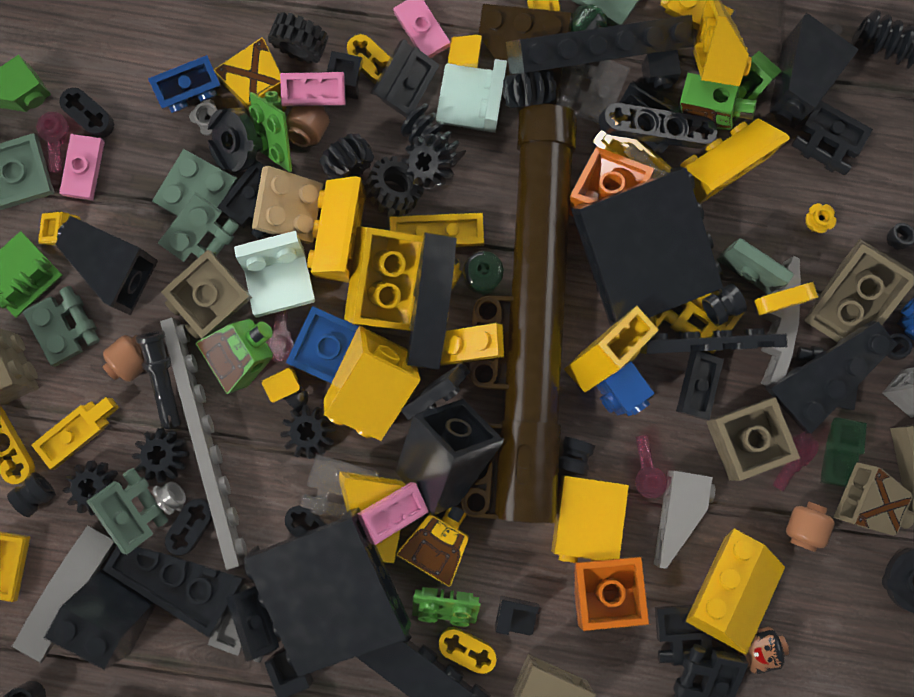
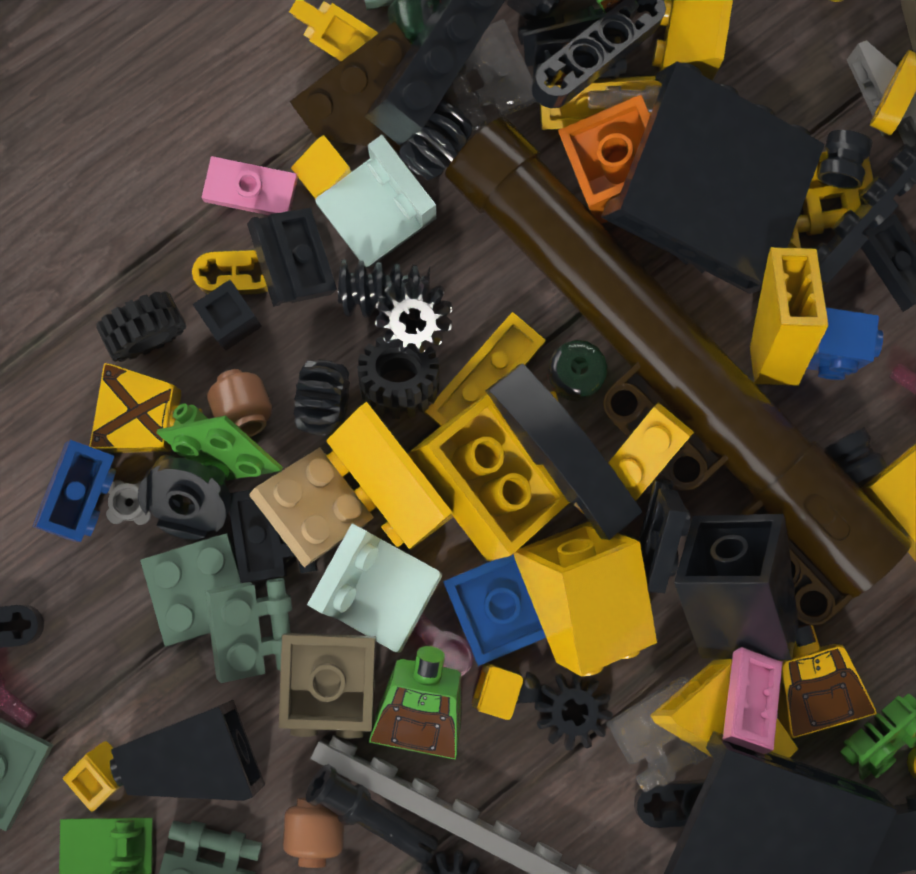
camera: 45 degrees left, 0 degrees up
(81, 167) = (53, 687): bright pink plate -> none
(313, 89) = (217, 362): bright pink plate -> none
(755, 266) = (834, 91): sand green plate -> none

